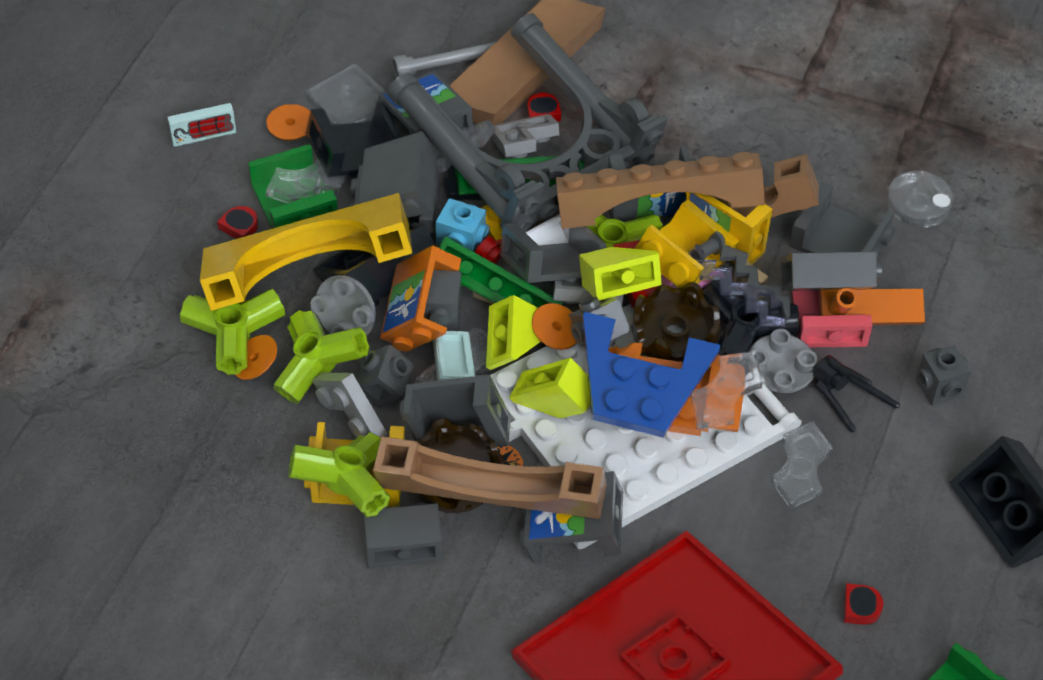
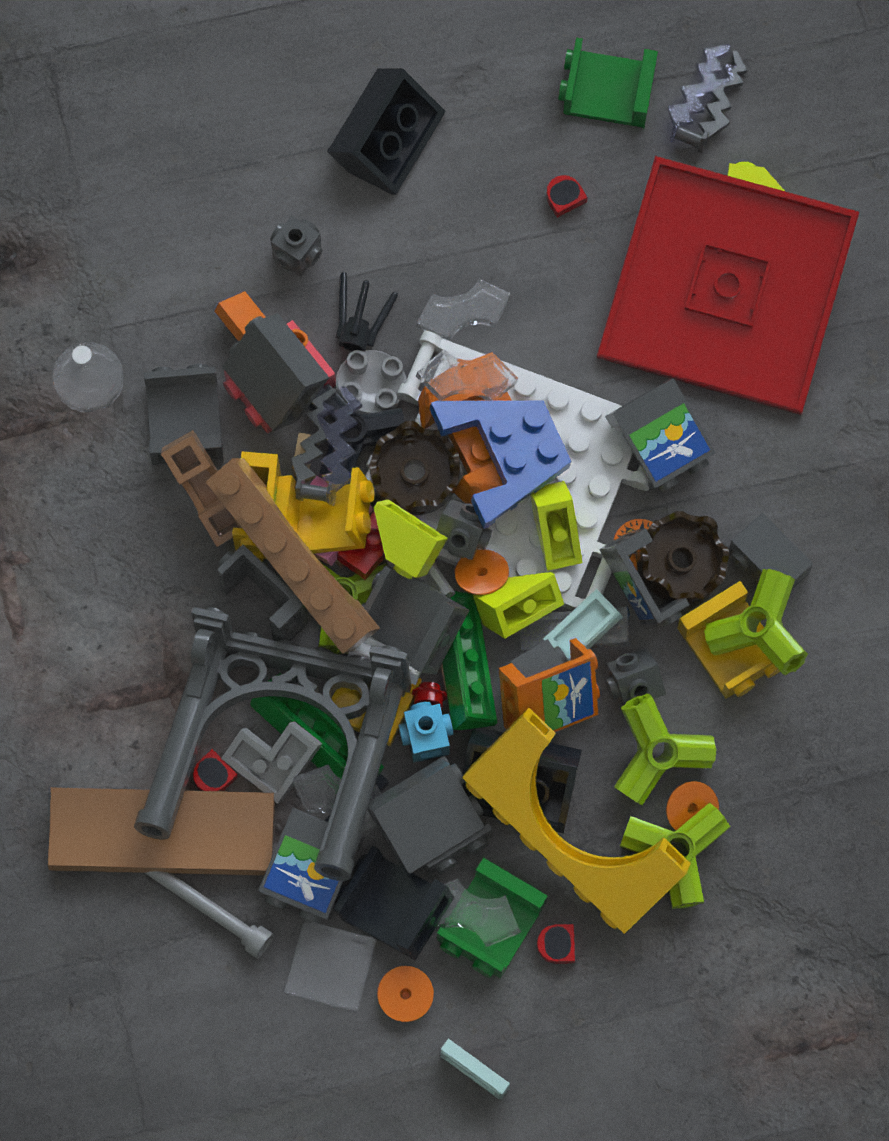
camera: 125 degrees left, 20 degrees up
(344, 305) = (598, 759): light grey dish -> none
(344, 393) = (692, 679): light grey plate -> none
(556, 489) = (670, 430): medium nougat arch -> none

